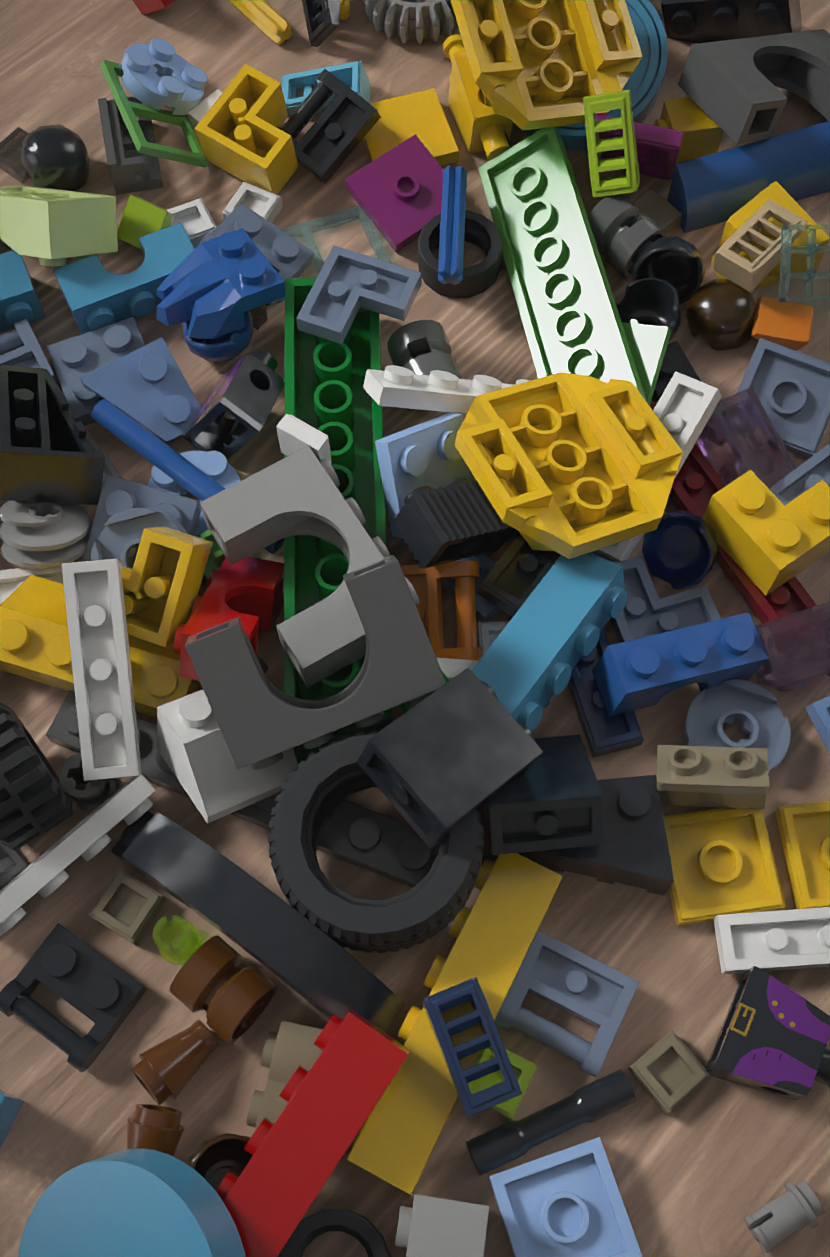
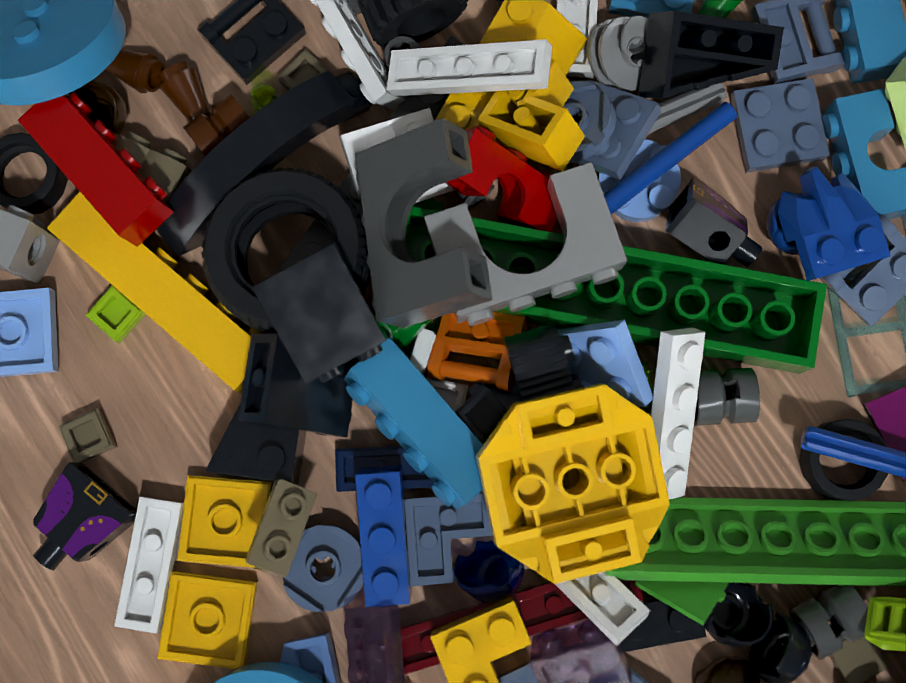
camera: 105 degrees right, 15 degrees up
(148, 390) = (743, 153): medium blue wing -> none
(296, 435) = (639, 262): white tile -> none
(353, 282) = (801, 335): sand blue plate -> none
(453, 997) = (160, 287): dark blue slope -> none
(519, 1136) = (80, 368): black piece -> none
(576, 986) = (161, 384): sand blue plate -> none

